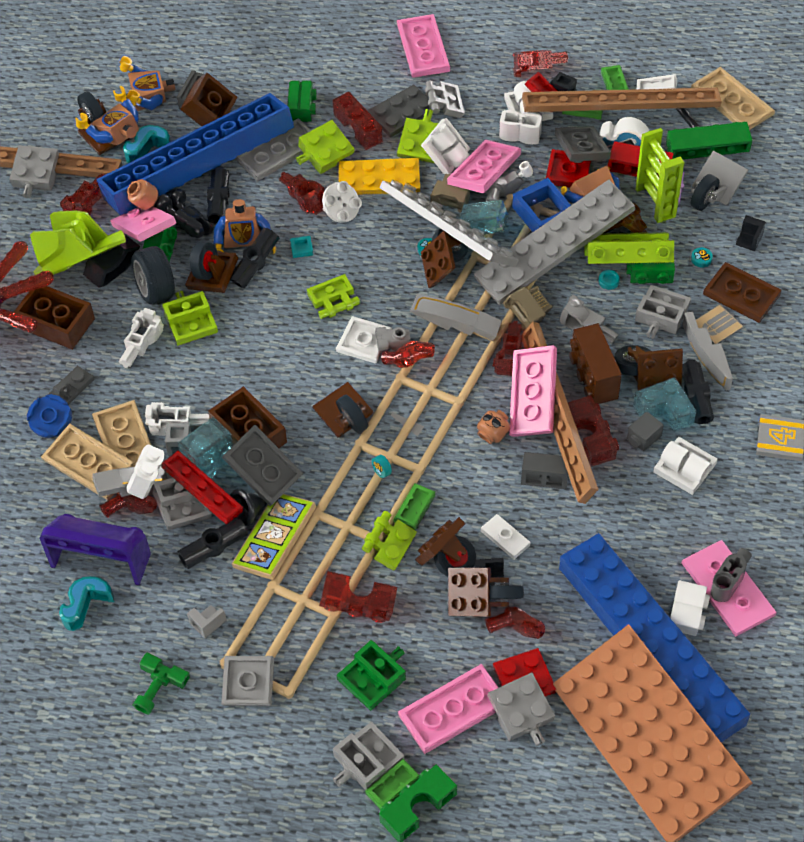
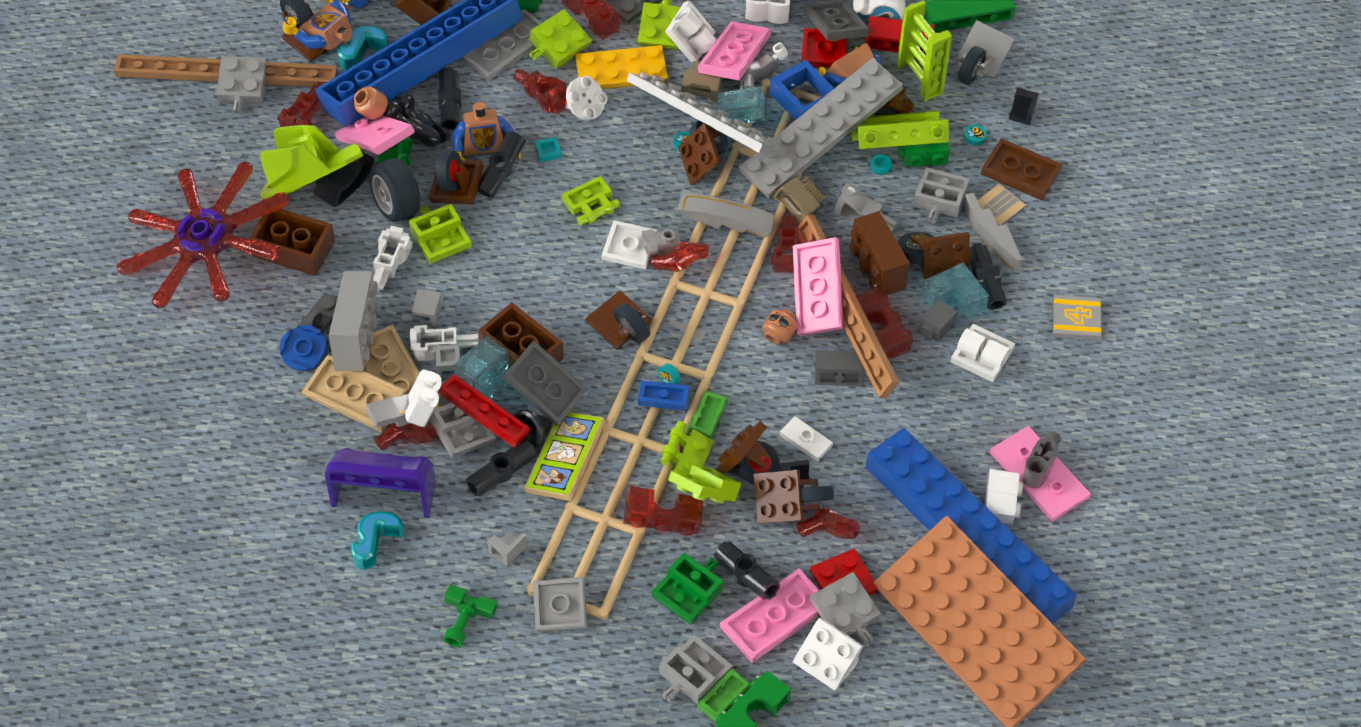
camera: 10 degrees left, 0 degrees up
(95, 394) = (354, 321): none -> light grey brick
(168, 383) = (427, 304): none -> light grey panel
(373, 485) = (663, 395): none -> blue plate
(401, 573) = (706, 483): none -> lime plate
(430, 662) = (747, 570): none -> black piece
(498, 753) = (828, 654): none -> white plate

